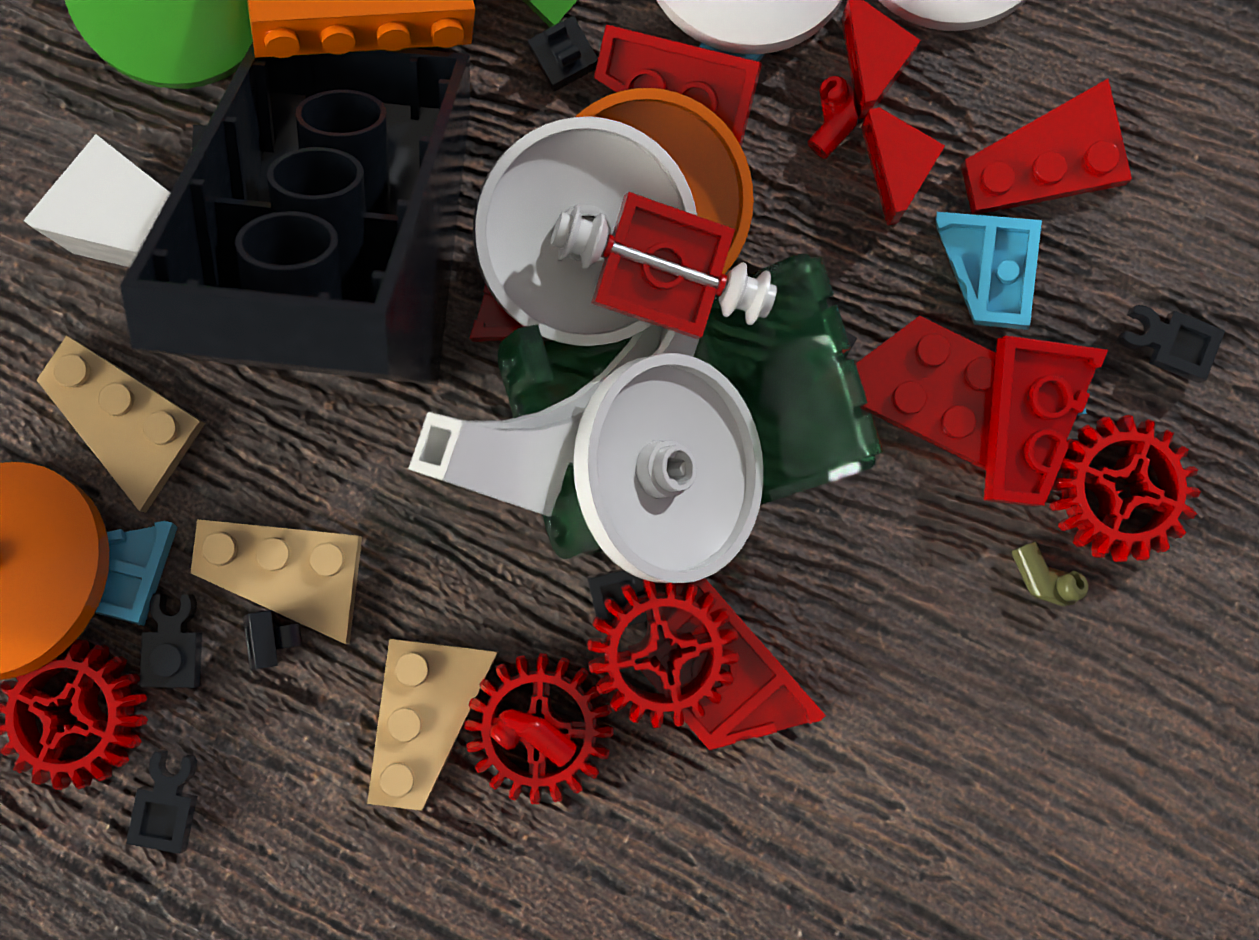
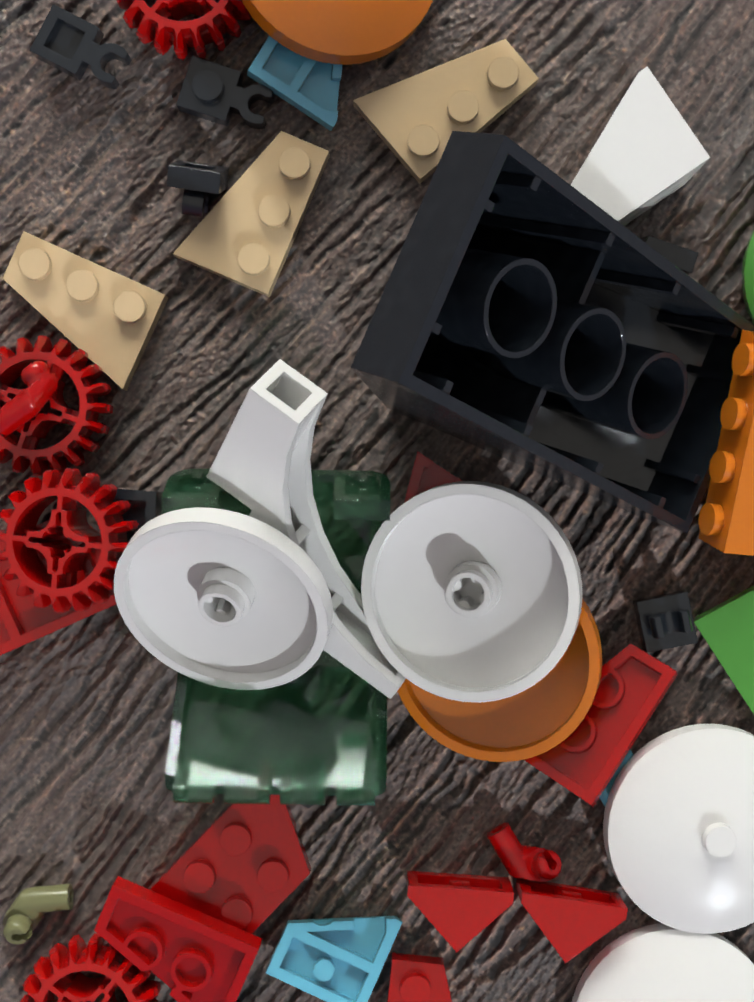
camera: 105 degrees right, 5 degrees up
(663, 265) = (412, 654): red plate -> none

